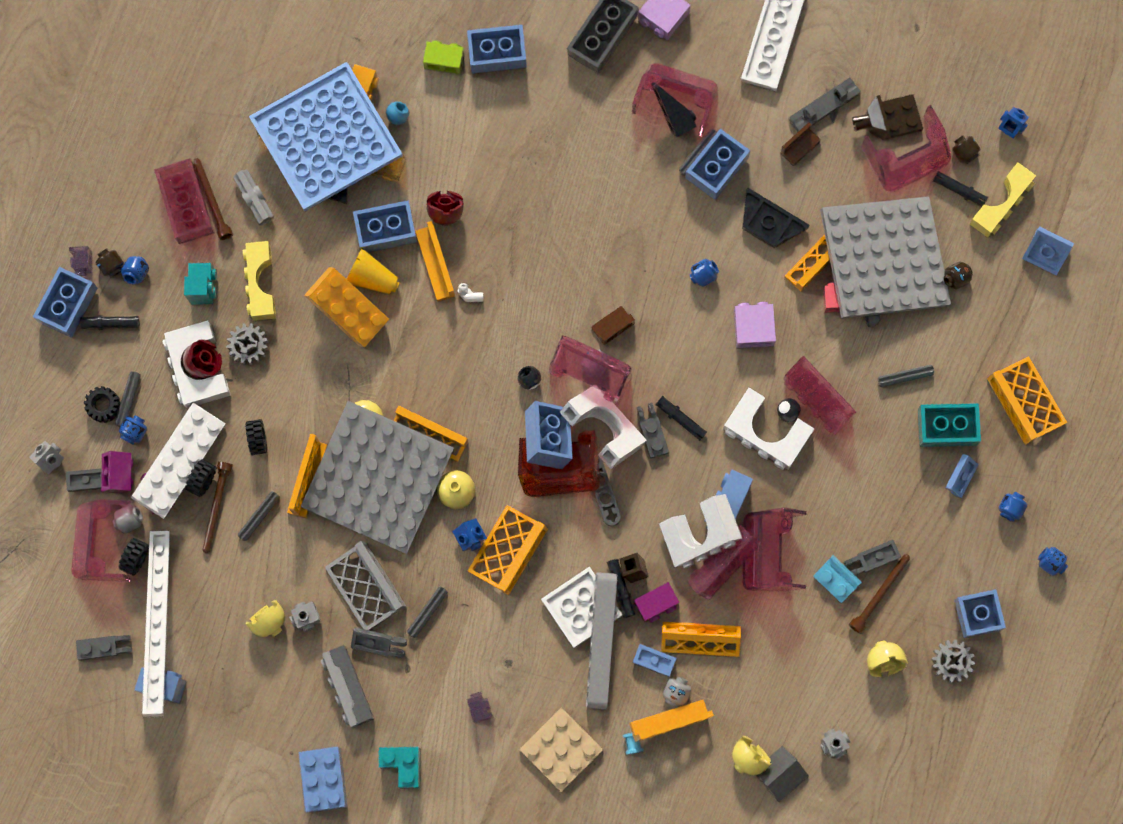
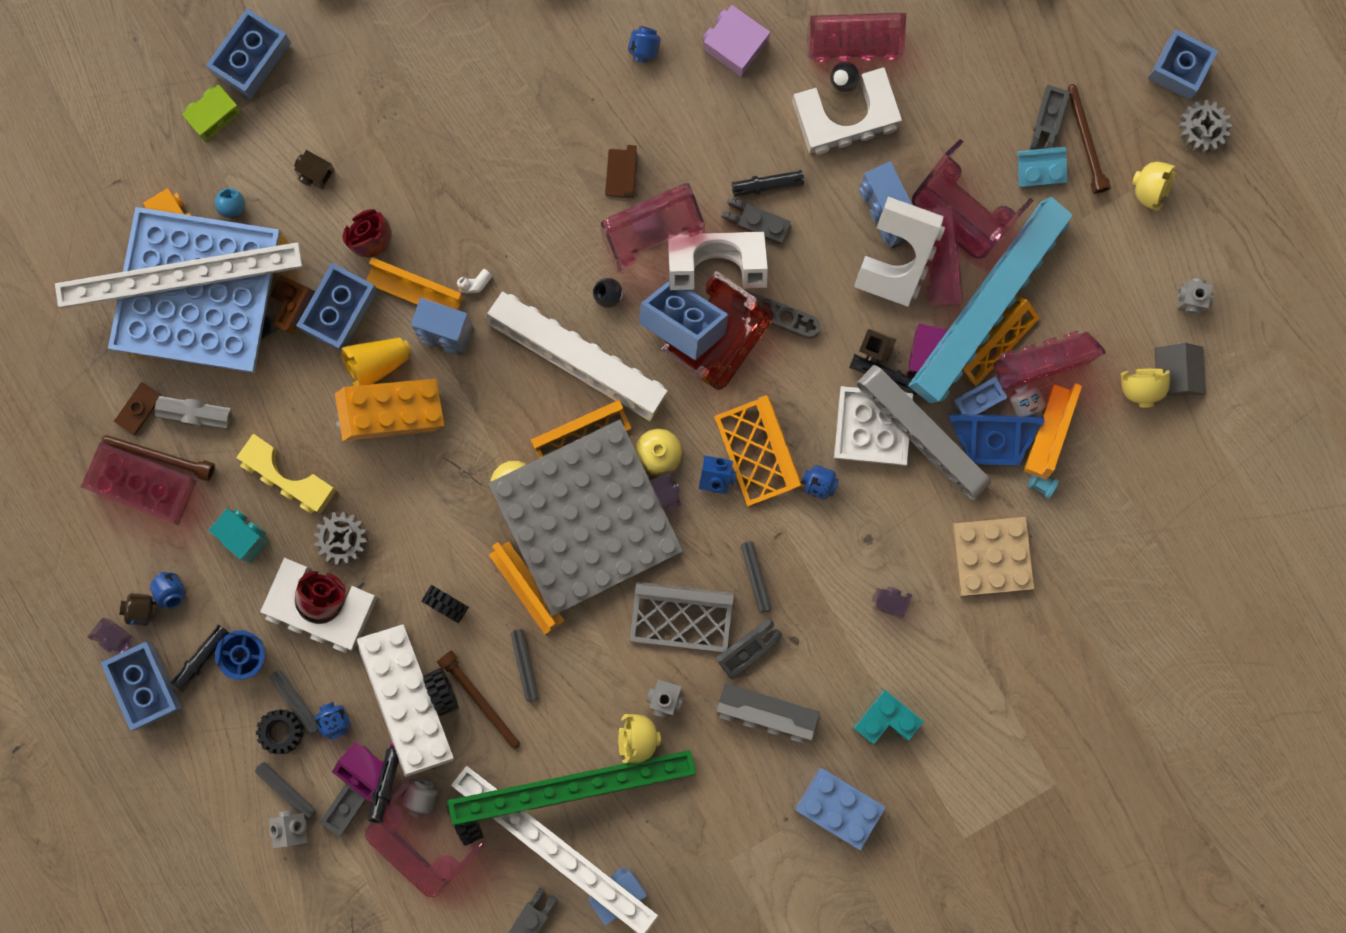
camera: 60 degrees left, 5 degrees up
(69, 436) = (282, 788): none -> dark grey axle
(110, 492) = (381, 795): none -> black pin
(128, 343) = (240, 655): none -> blue cylinder
(203, 603) = (570, 788): none -> green plate
(230, 163) = (137, 408): none -> reddish brown plate
(325, 120) = (178, 275): none -> white plate
(370, 197) = (295, 301): none -> reddish brown plate
(422, 296) = (442, 326): none -> medium blue brick
(435, 513) = (666, 491): none -> clear purple brick
(458, 144) = (313, 169): none -> dark brown brick
(473, 391) = (576, 356): none -> white brick
(518, 602) = (820, 482): none -> blue head
(636, 688) = (995, 437): none -> blue wing
(713, 681) = (1047, 359): none -> clear pink slope
(720, 614) = (990, 300): none -> medium azure brick

